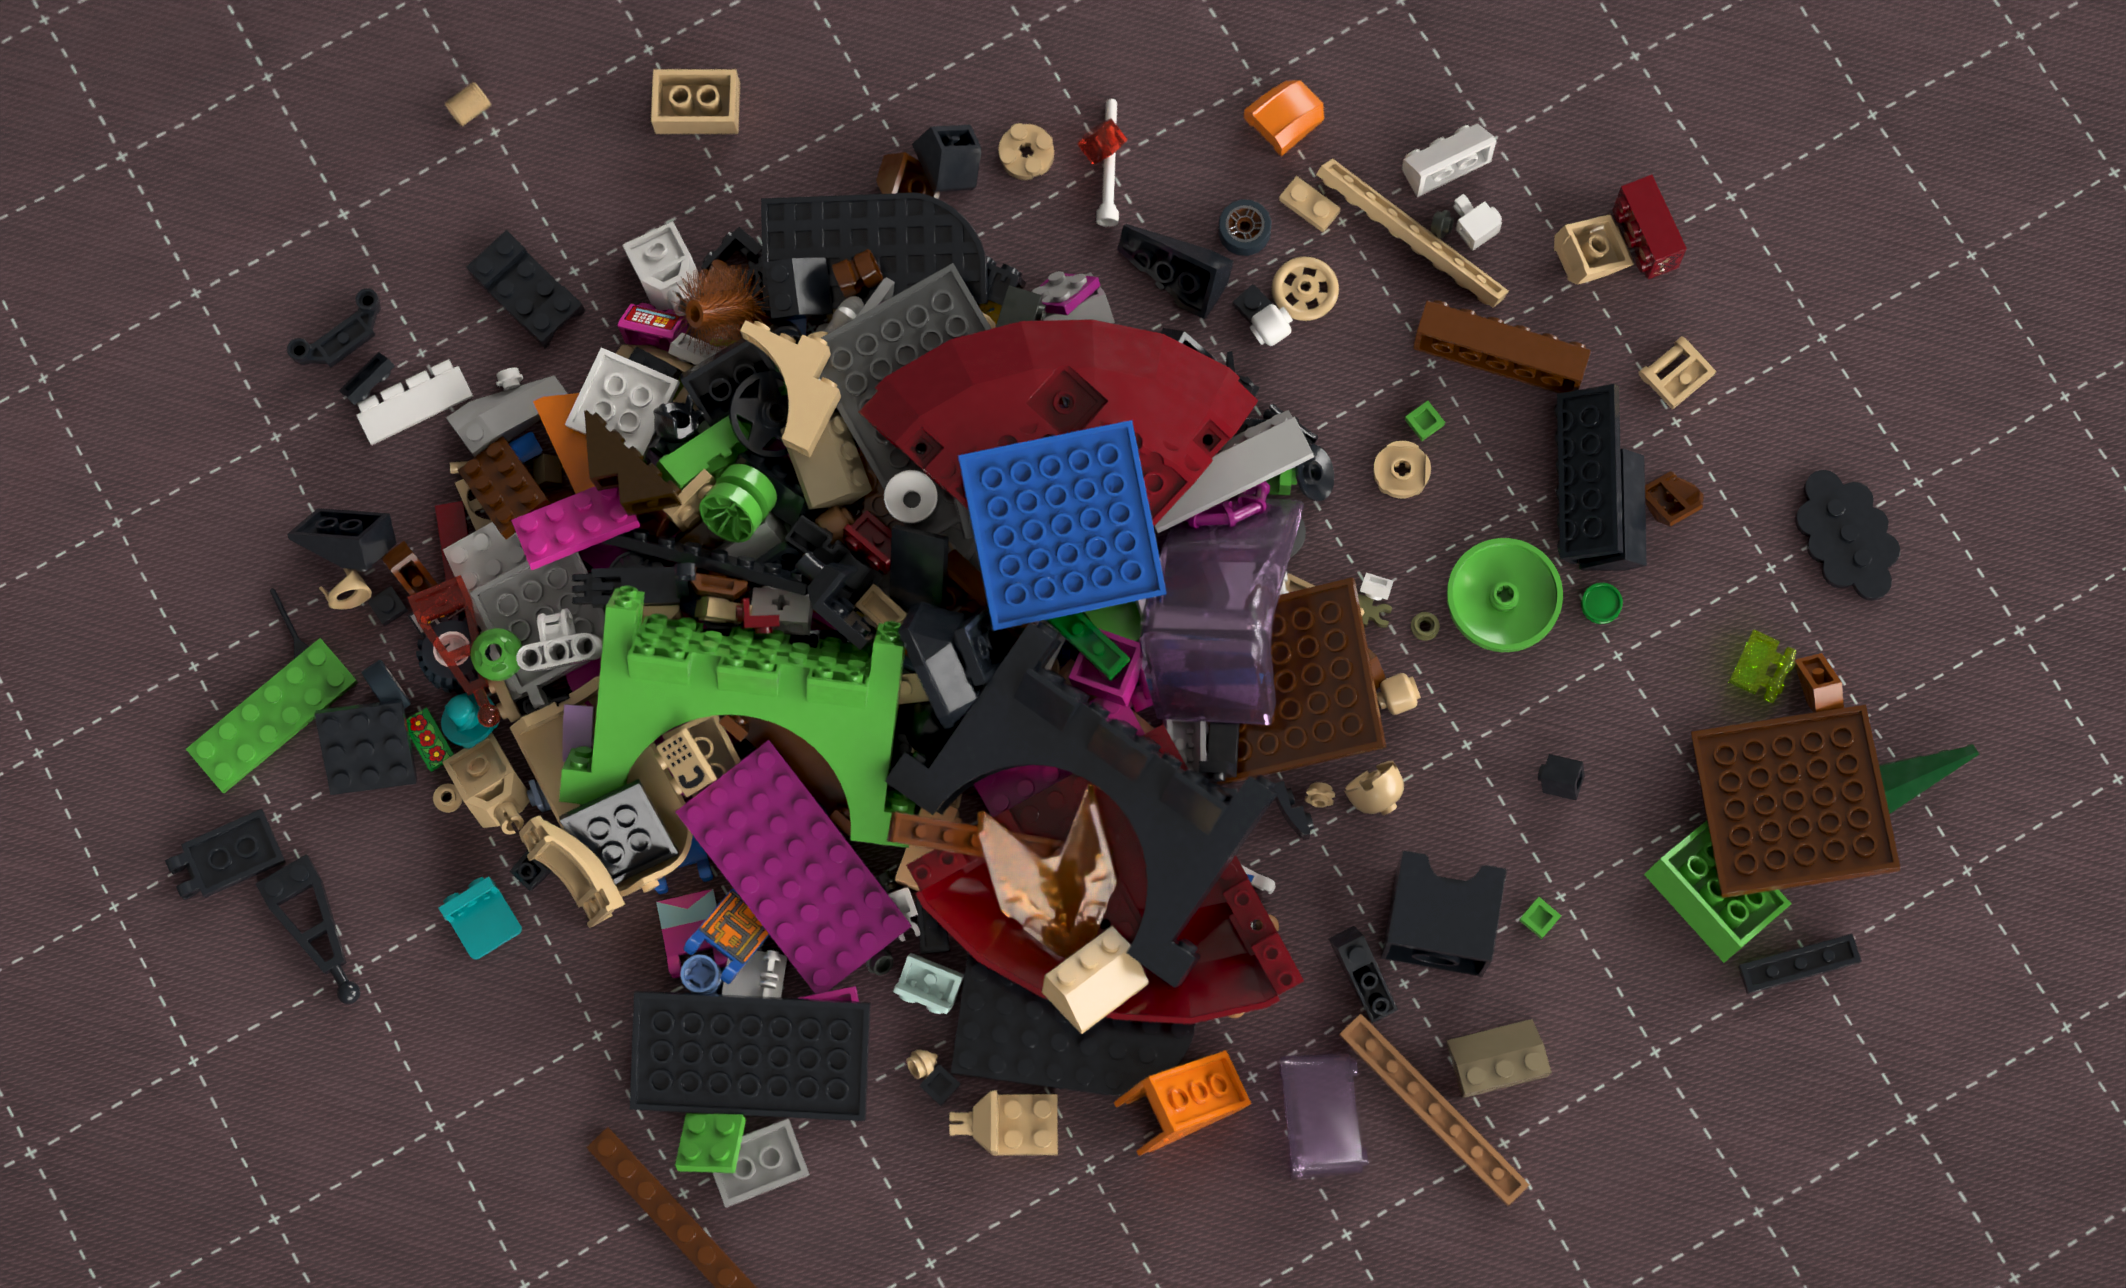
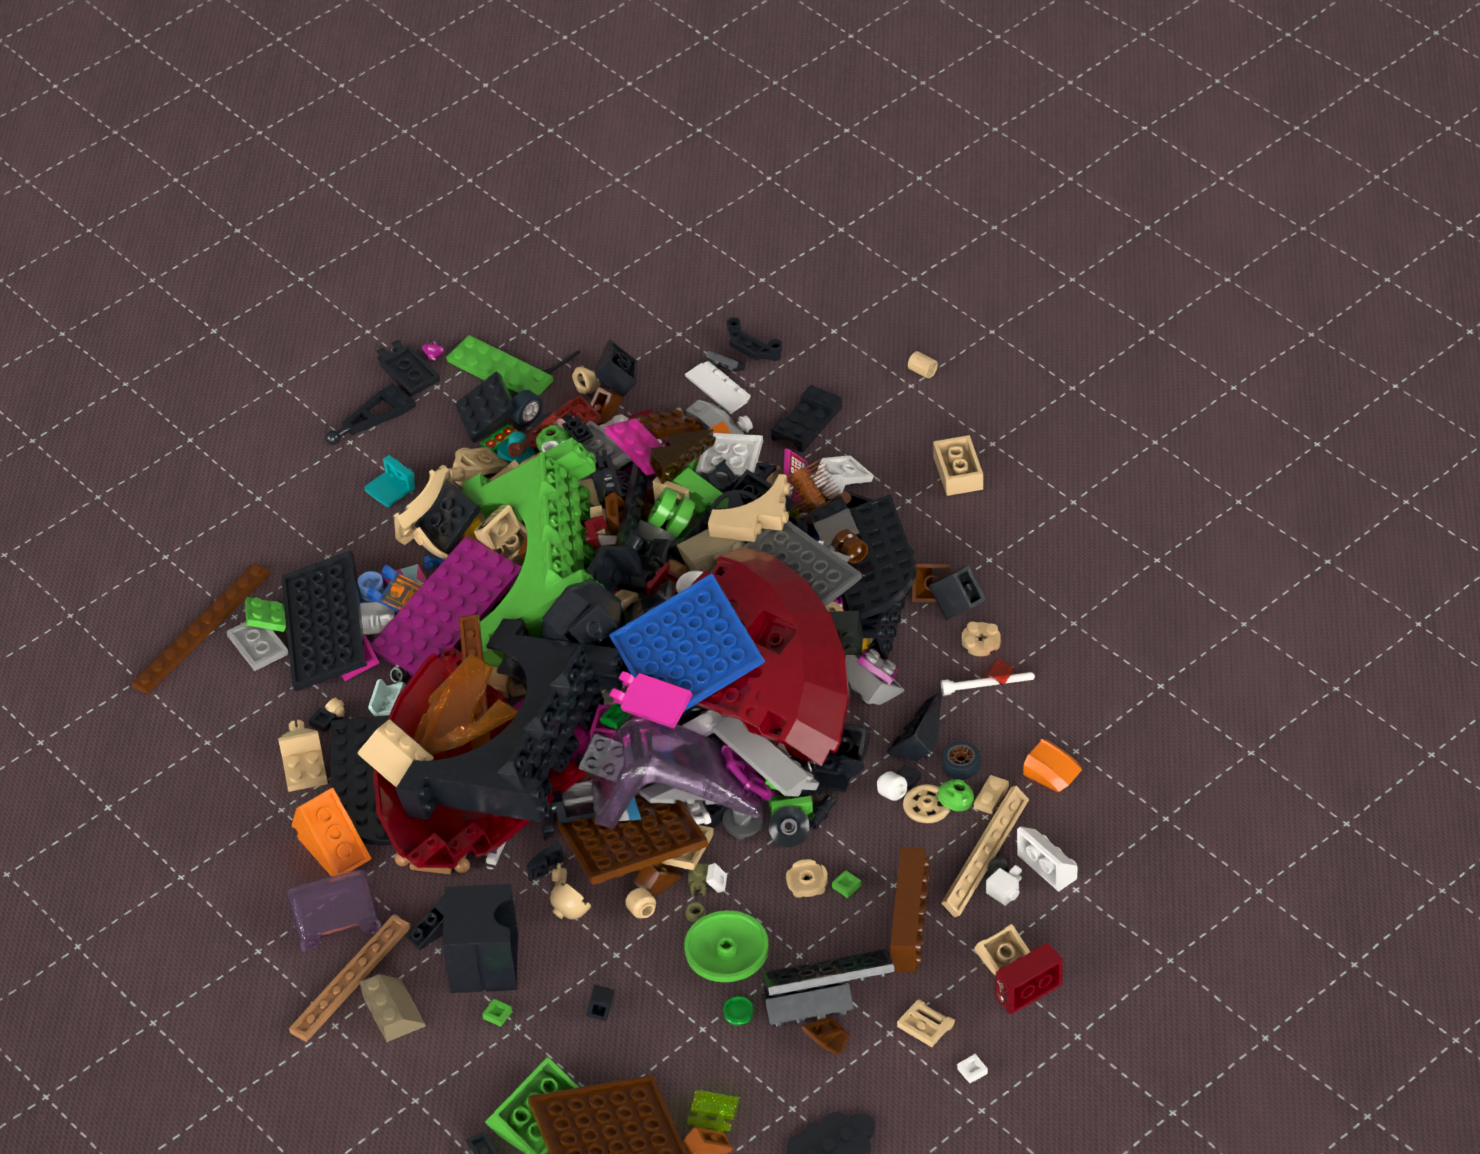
camera: 75 degrees right, 30 degrees down
(203, 809) = (433, 350): none -> magenta piece
(494, 613) = (577, 430): none -> black slope
(1134, 592) = (652, 699): none -> dark pink tile
(1158, 711) = (594, 754): none -> black bracket
(1305, 256) = (955, 799): none -> bright green piece
(1764, 332) = (972, 1068): none -> white plate

